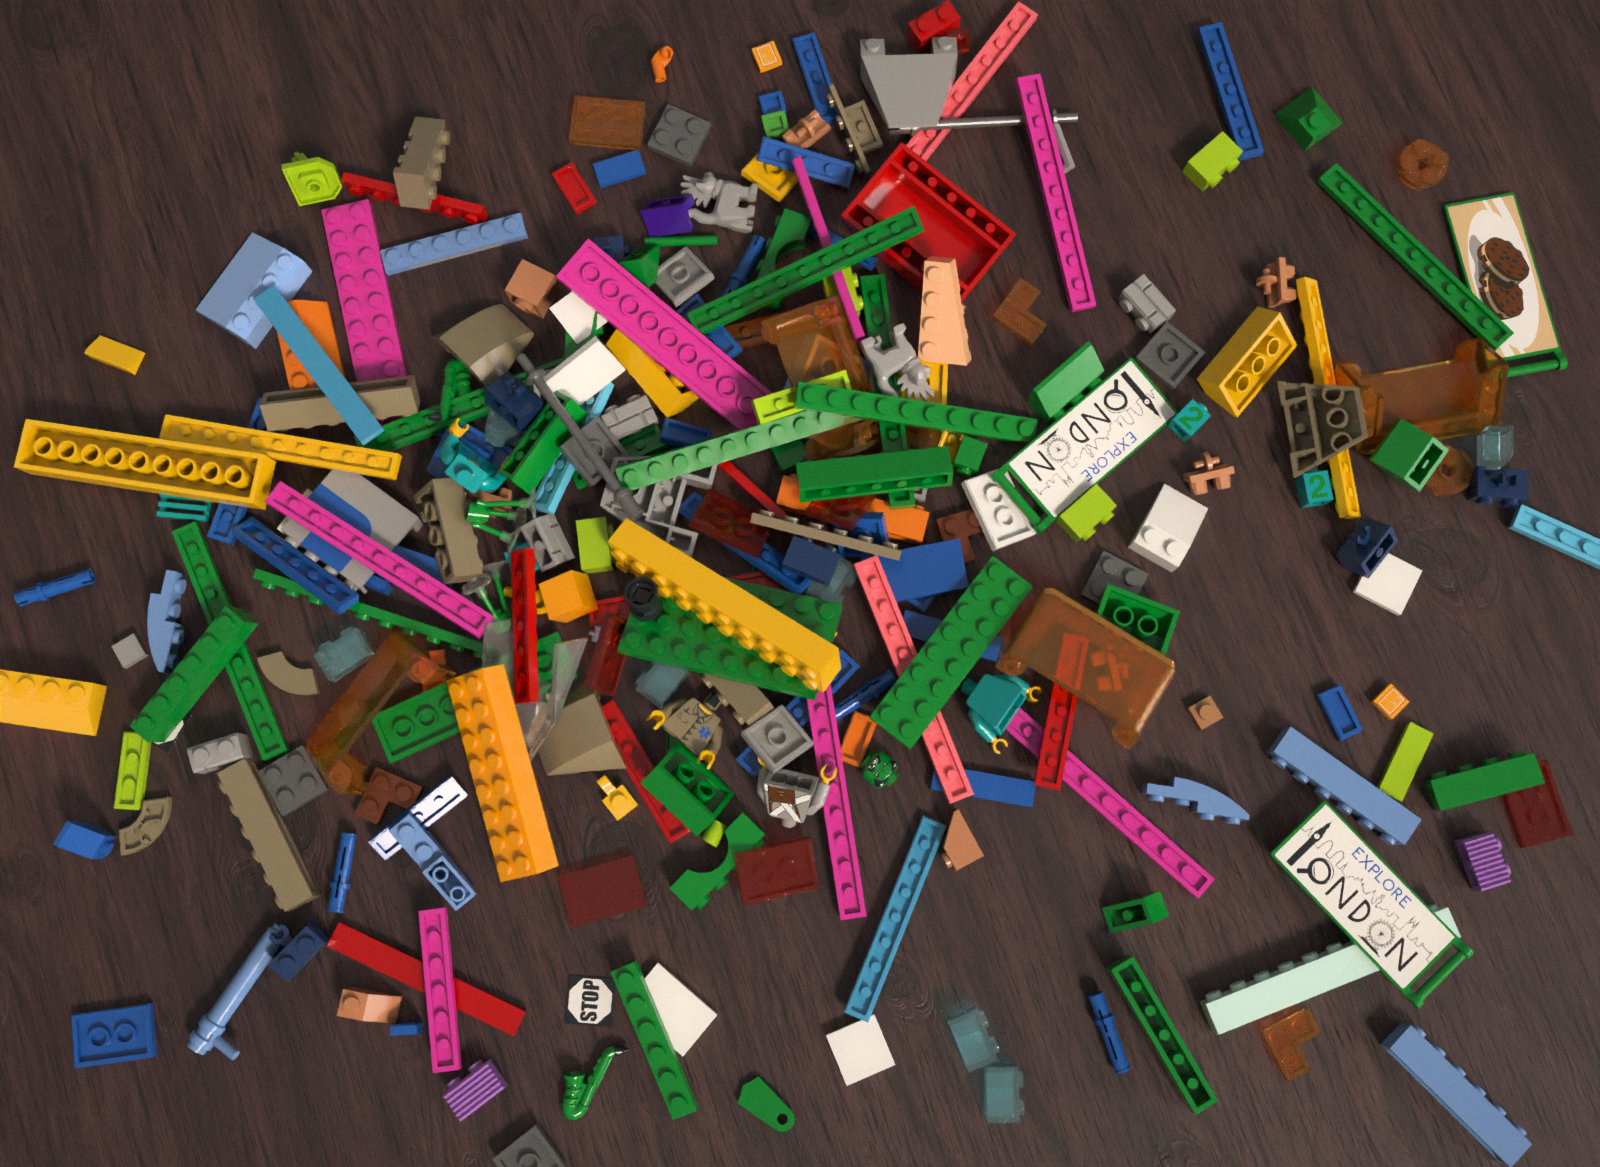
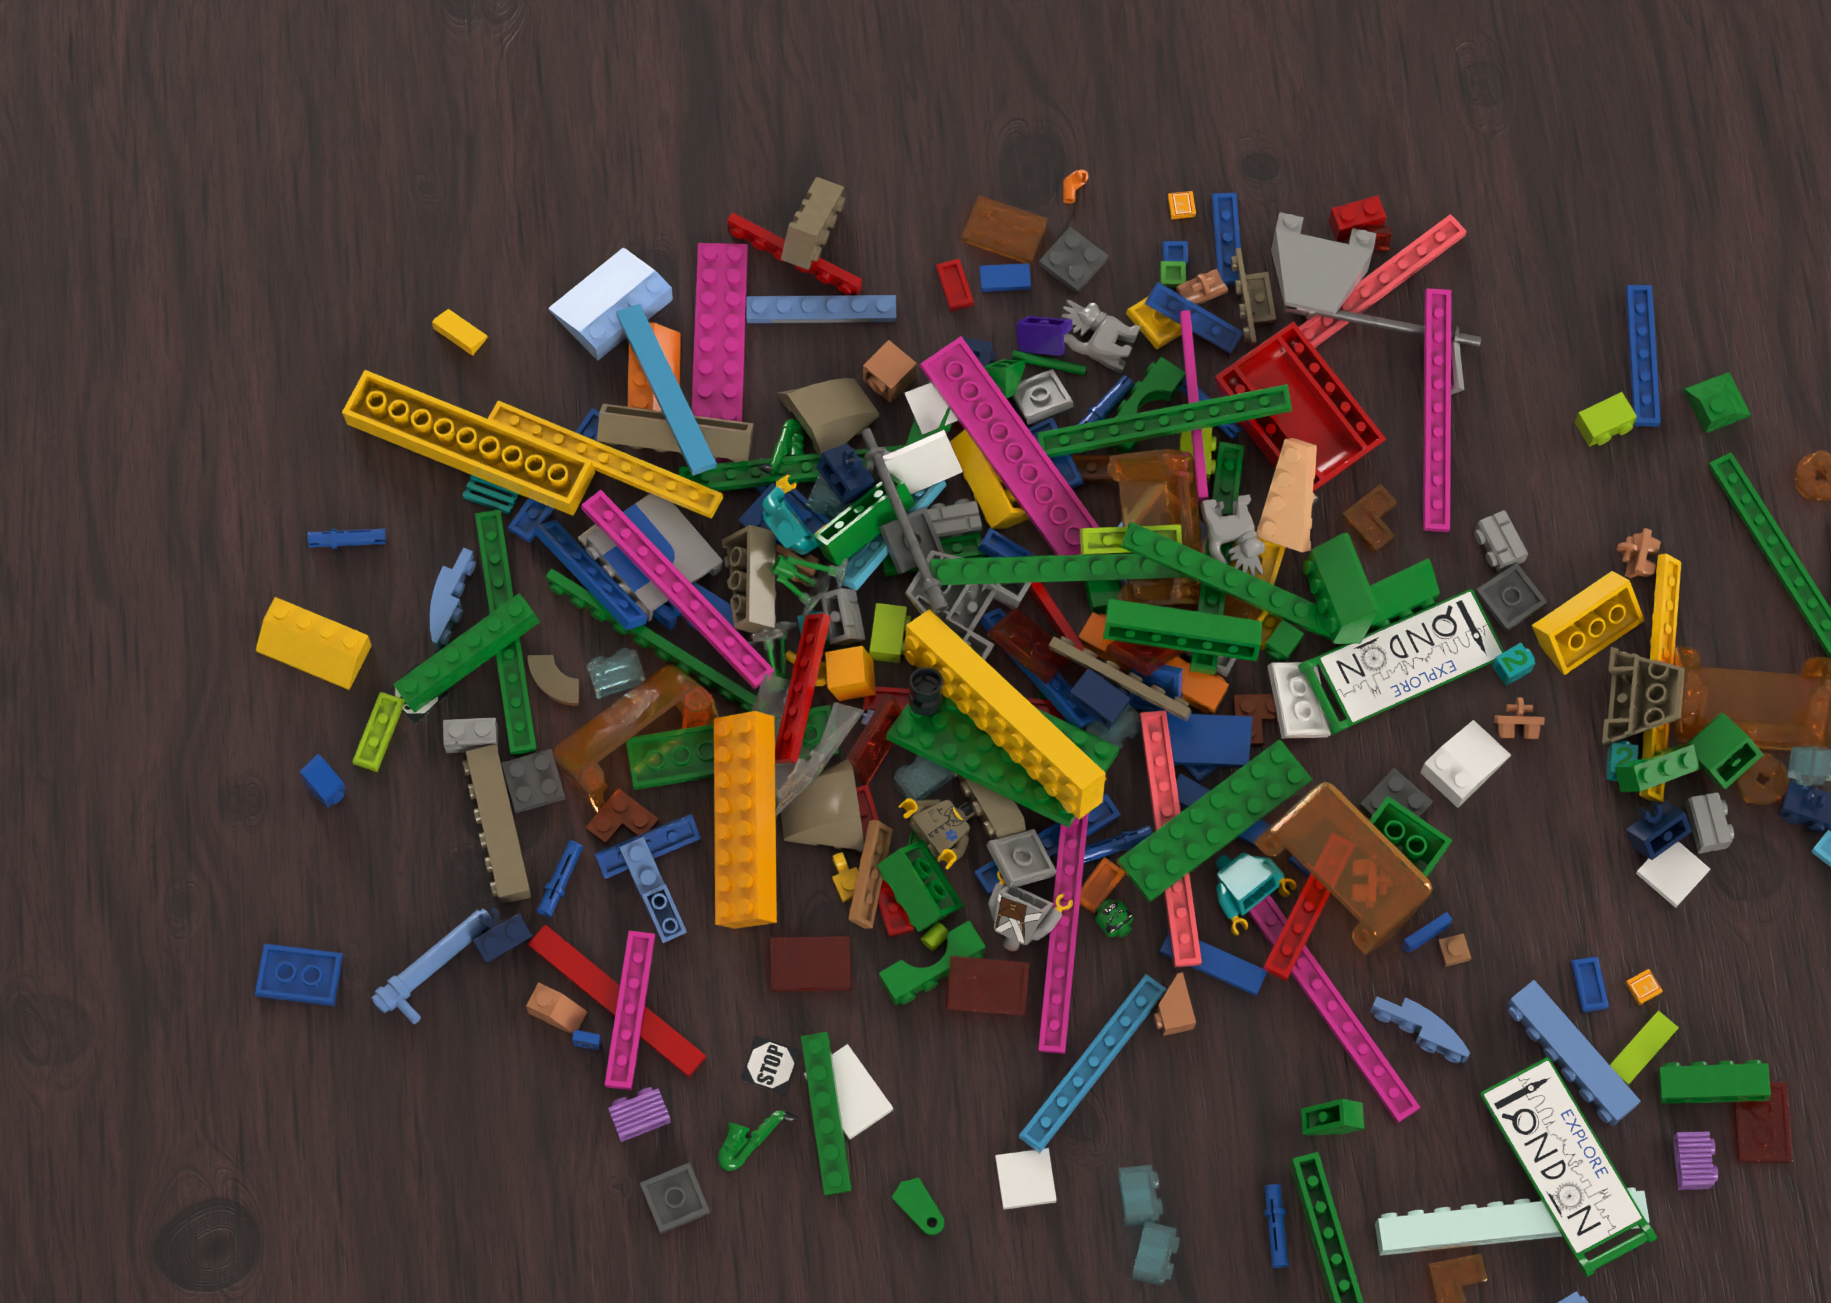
camera: 10 degrees right, 10 degrees down
(130, 650) = (404, 617): light grey tile -> none
(147, 827) = (379, 787): dark tan tile -> none
(312, 179) = (698, 211): lime piece -> none
(636, 795) = (869, 877): none -> medium nougat plate
(1013, 393) = (1341, 590): none -> green slope
(1086, 513) = (1386, 728): lime brick -> none
(1176, 704) = (1426, 933): none -> blue tile
(1363, 482) = (1650, 772): none -> green arch
(1410, 526) = (1709, 822): none -> light grey brick

